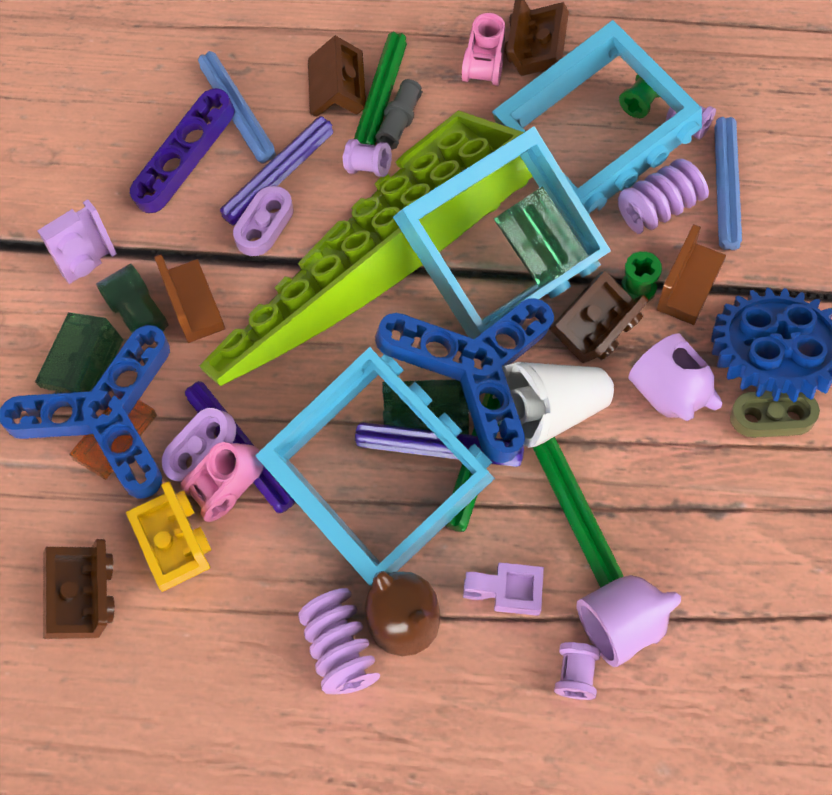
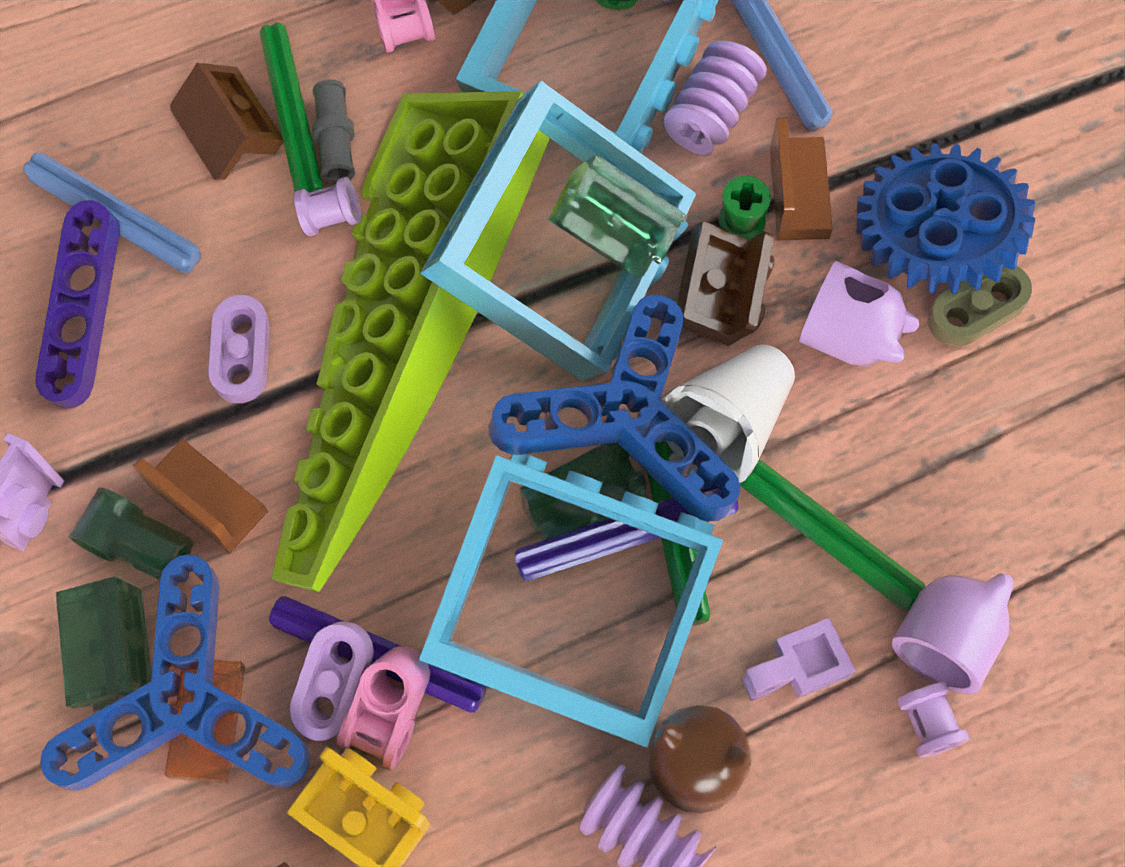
camera: 30 degrees left, 5 degrees up
(278, 168) = (216, 273): axle -> none

